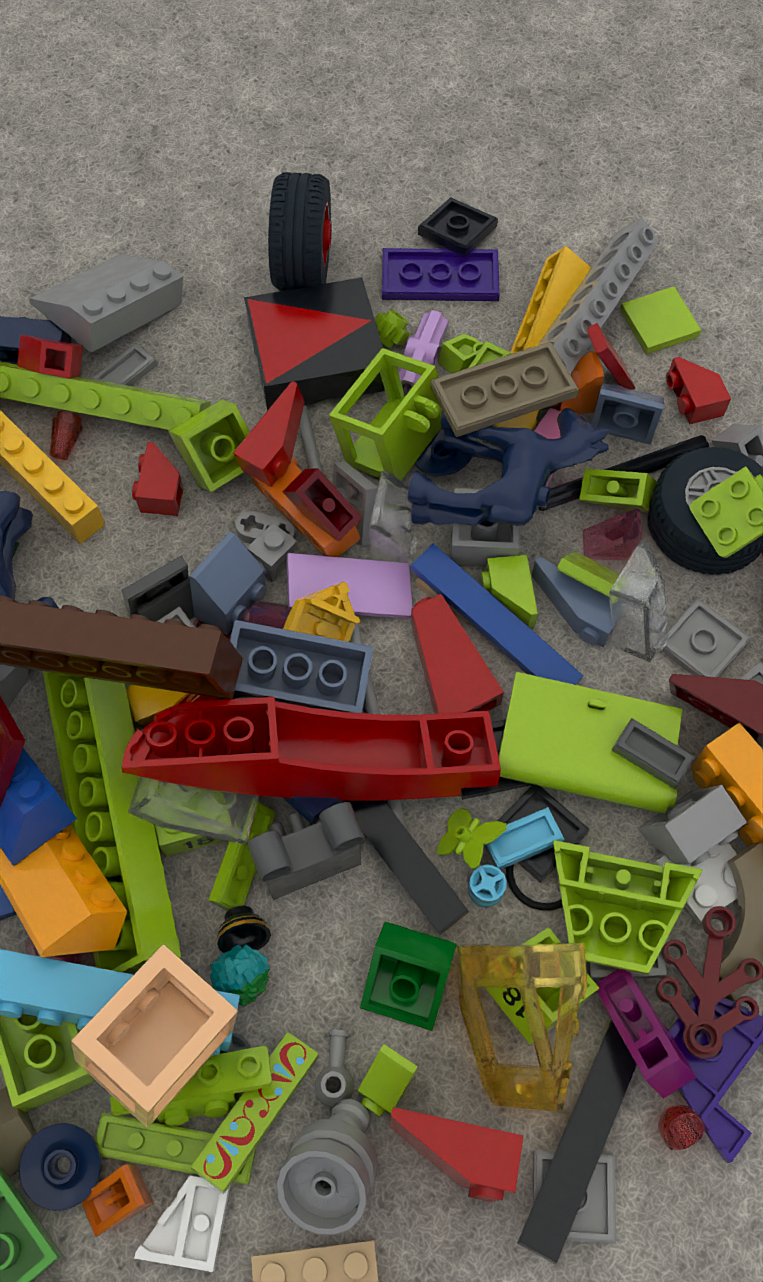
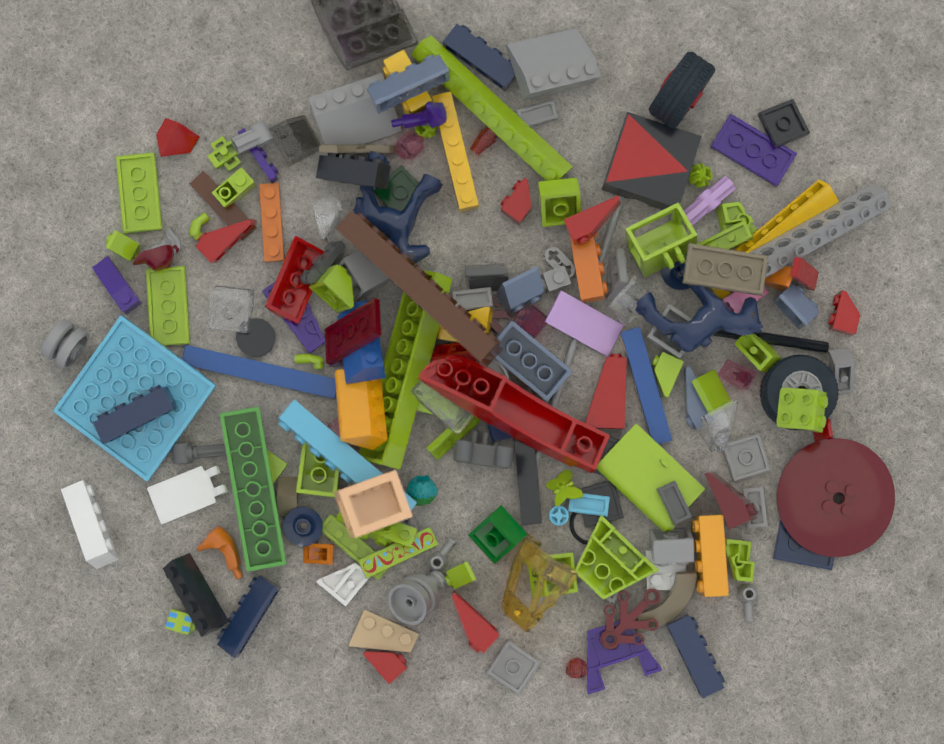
camera: 25 degrees right, 20 degrees up
(50, 356) = (498, 93): red slope -> none
(242, 928) = (435, 469): black piece -> none
(322, 503) = (592, 276): dark red slope -> none
(324, 614) = (558, 337): yellow slope -> none
(579, 1149) = (532, 647): black tile -> none
(644, 1033) = (585, 622): magenta slope -> none
(660, 320) = (859, 255): lime tile -> none

